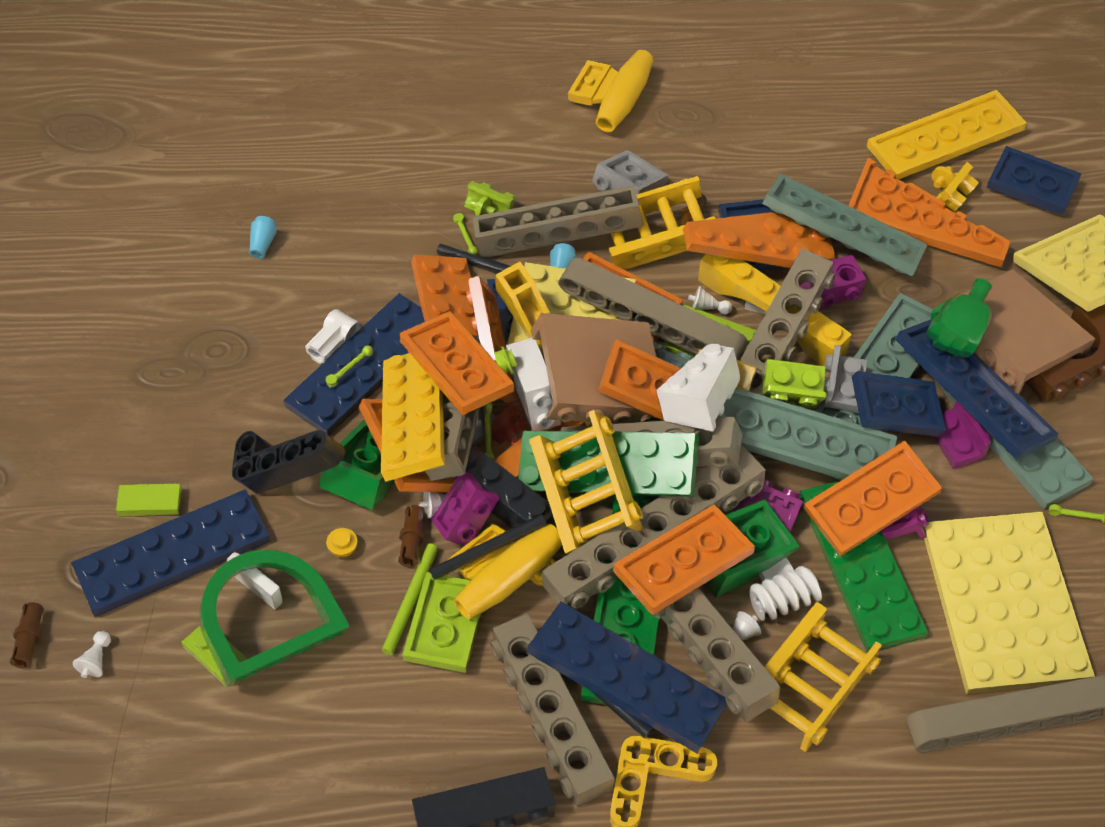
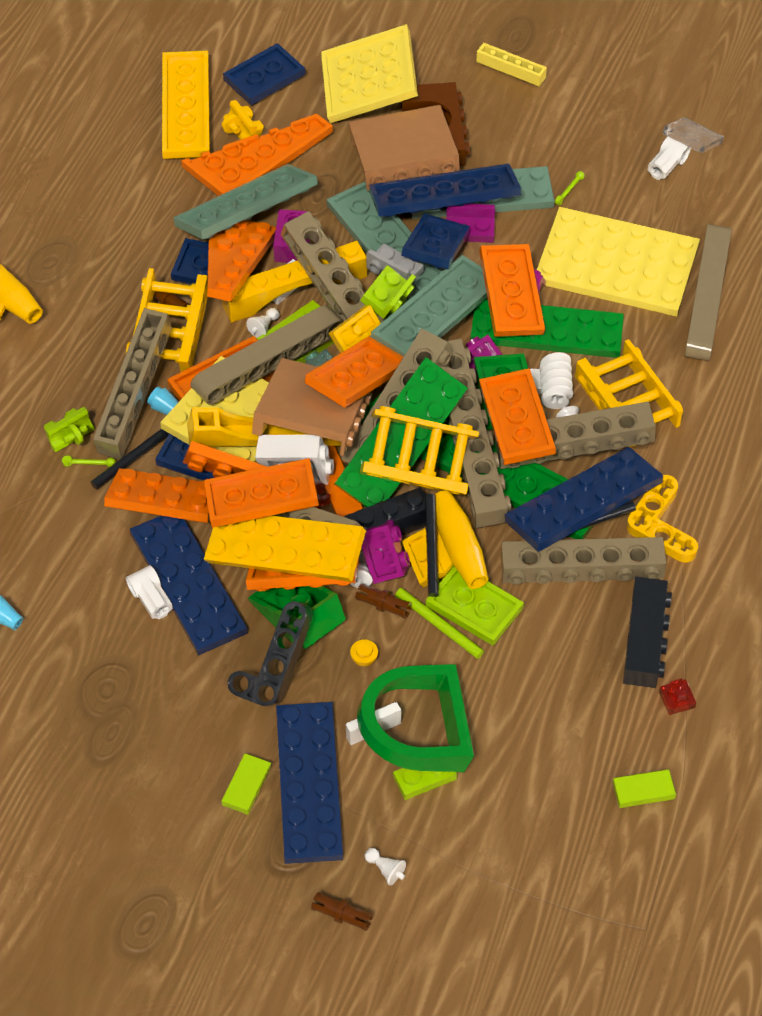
camera: 65 degrees left, 0 degrees up
(332, 380) = (201, 603): lime hinge -> none
(505, 360) = (277, 456): lime plate -> none
(628, 170) = (104, 322): light grey plate -> none
(700, 388) = (384, 339): white wedge -> none
(961, 321) = (397, 164): green piece -> none

